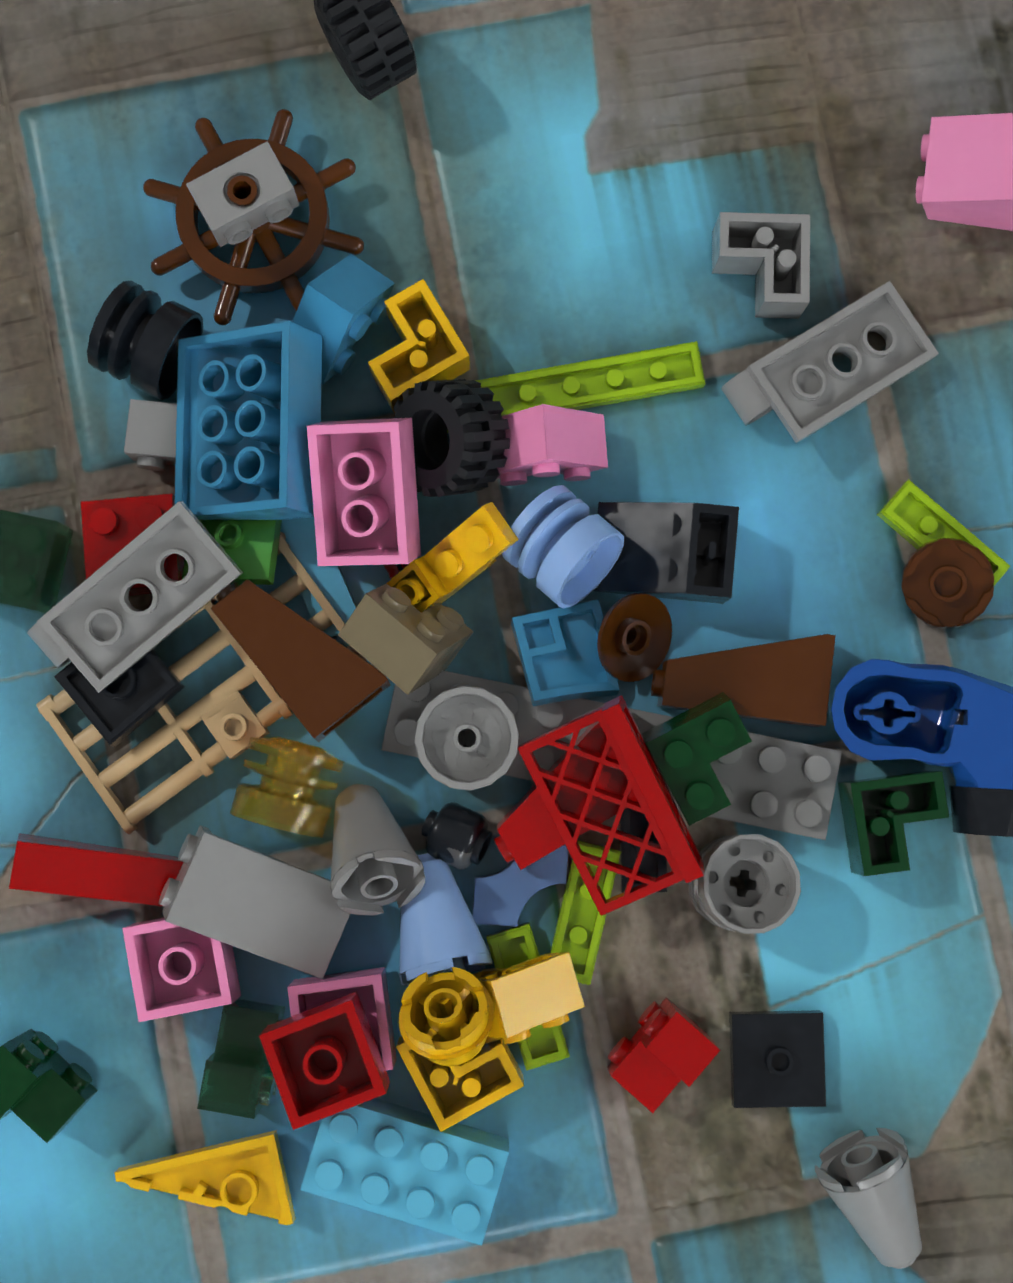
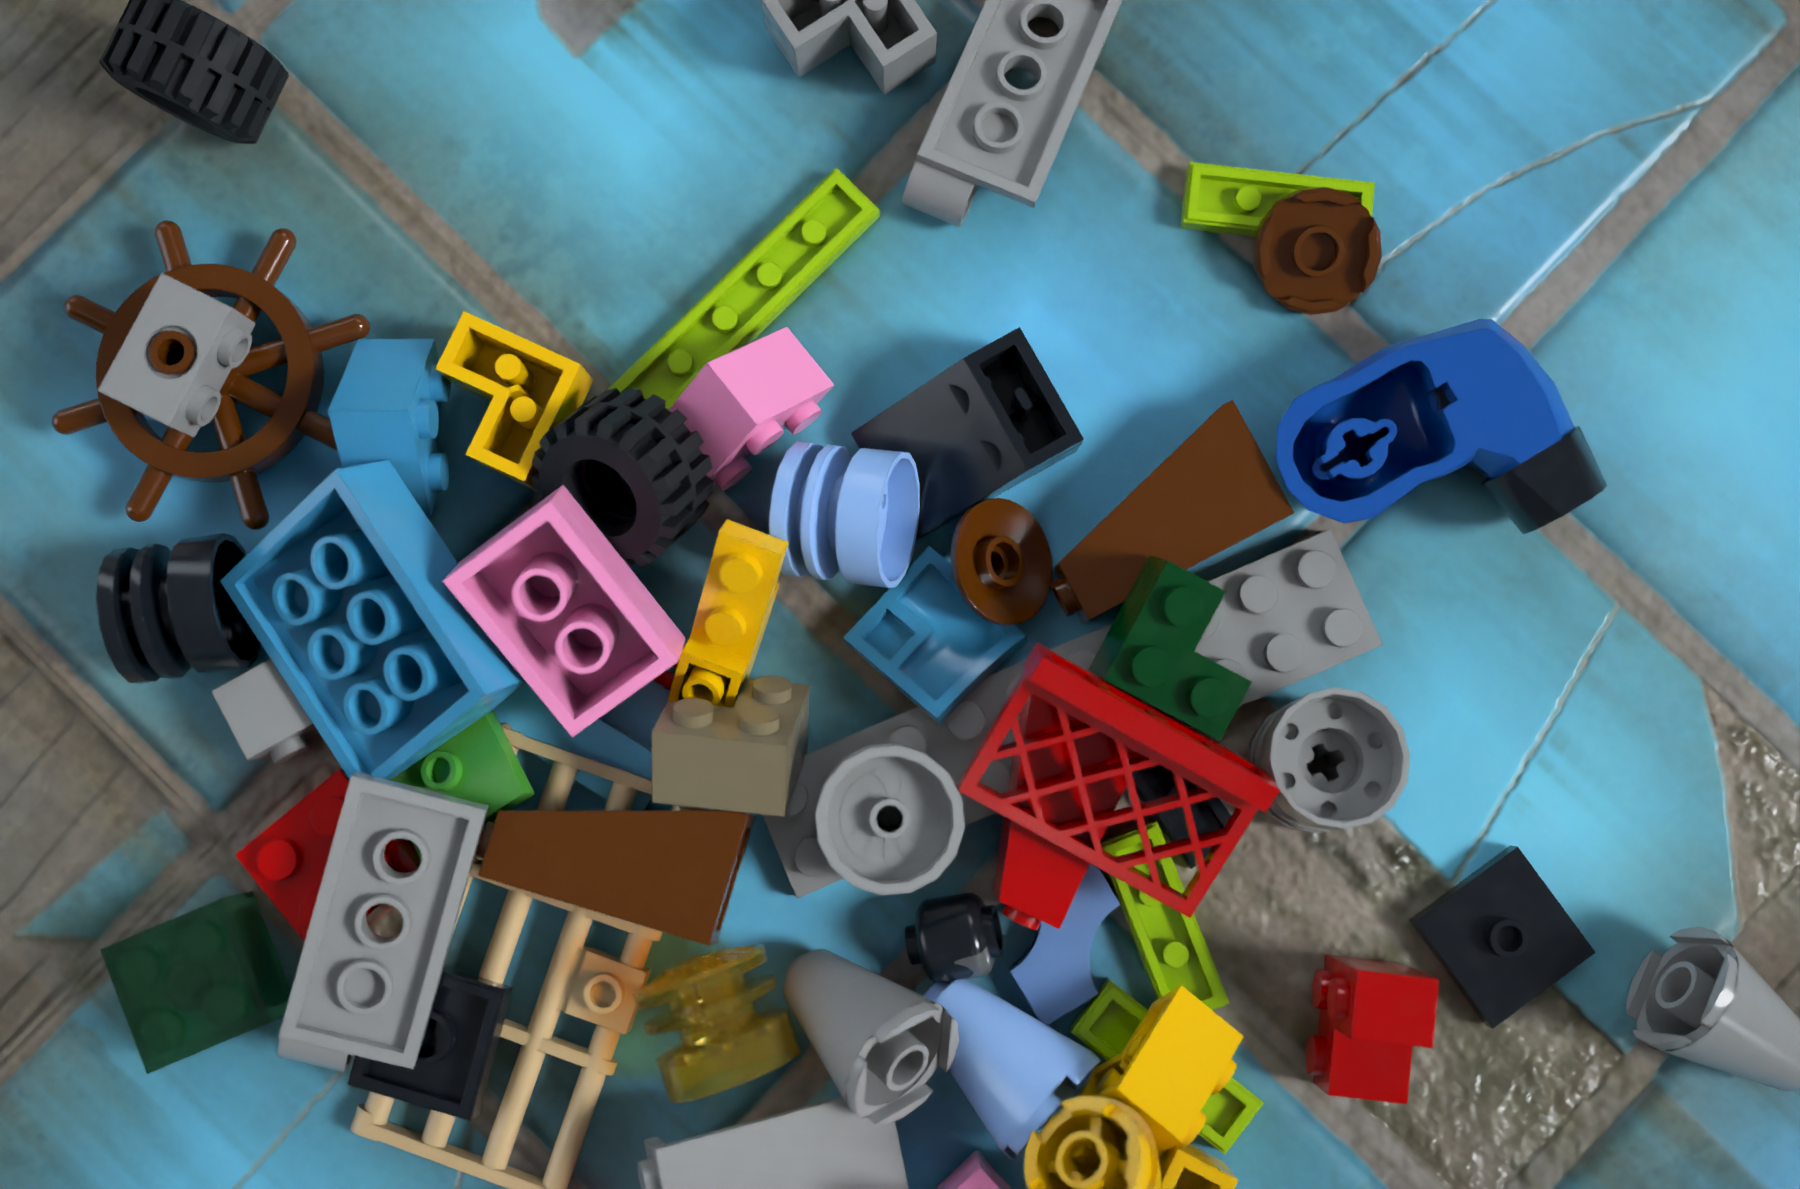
camera: 30 degrees left, 0 degrees up
(876, 816) = (1422, 572): dark green brick -> none

